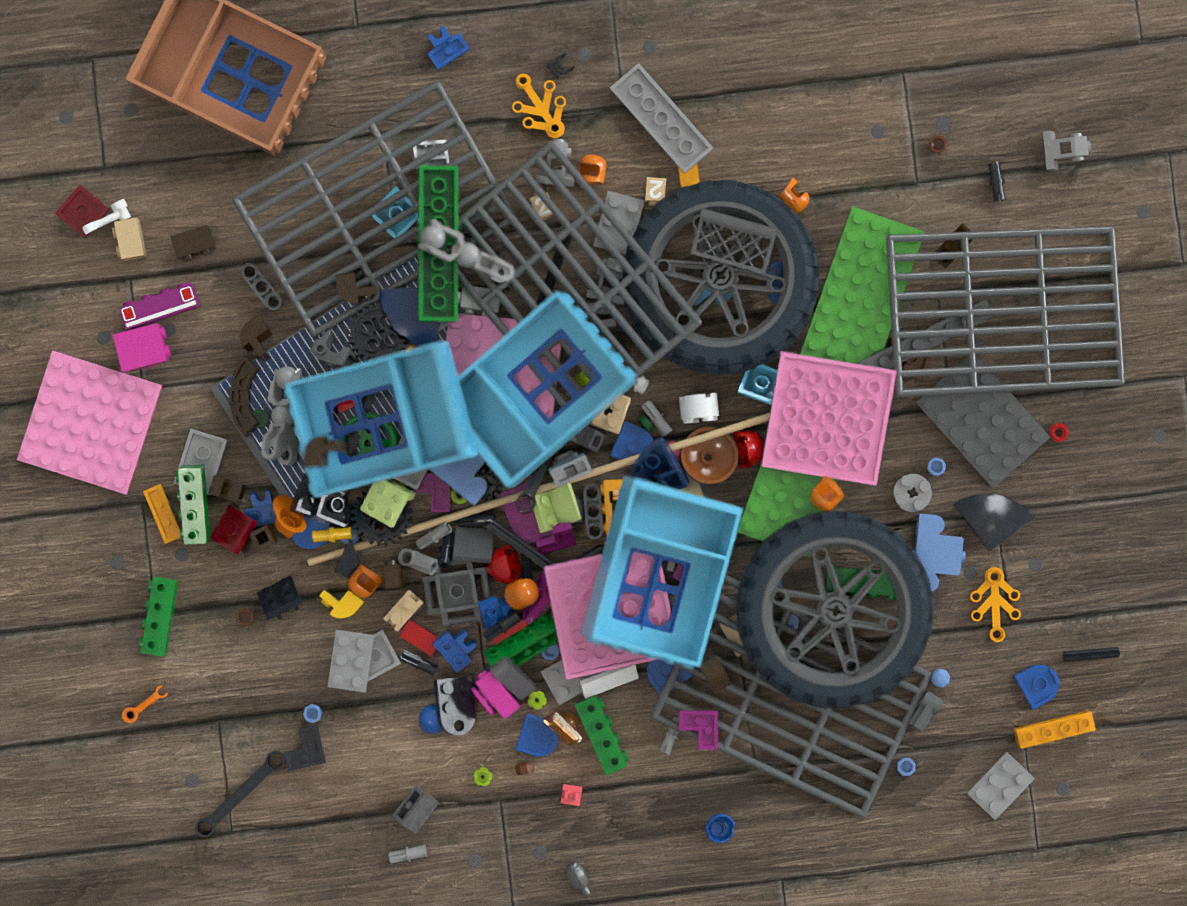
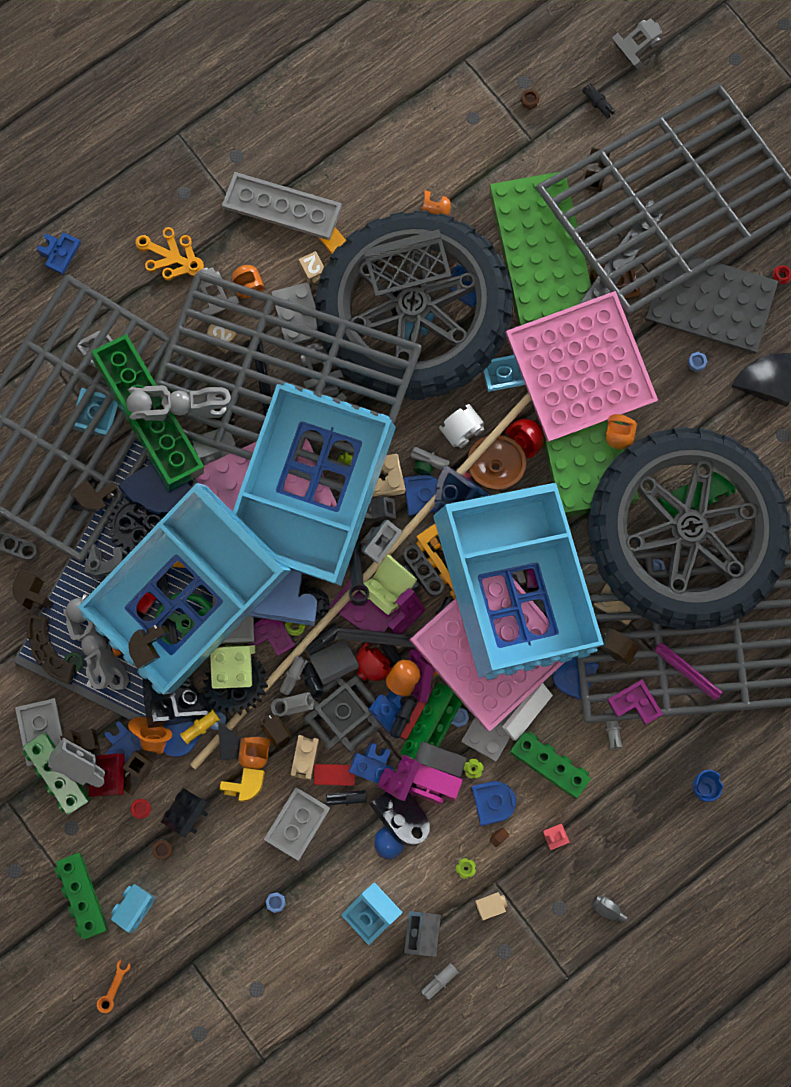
camera: 30 degrees left, 10 degrees down
(162, 513) = (32, 800): light orange tile -> none
(194, 651) = (133, 908): none -> medium azure slope
(213, 509) = (76, 764): none -> light grey hinge
(246, 572) = (140, 808): none -> red plate
(246, 788) = (251, 1019): black piece -> none
(310, 753) = (295, 941): black plate -> none
(351, 661) = (283, 831): light grey plate -> none
(384, 768) = (371, 913): none -> medium azure slope
(469, 677) = (399, 782): none -> magenta plate
(484, 819) = (491, 906): none -> tan brick
(556, 75) = (175, 215): black piece -> none
(564, 727) = (513, 778): clear orange tile -> none
(641, 385) = (398, 438): white plate -> none
(761, 725) = (688, 671): none -> magenta axle
(921, 486) = (697, 387): light grey plate -> none
(937, 552) = (749, 428): medium blue brick -> none

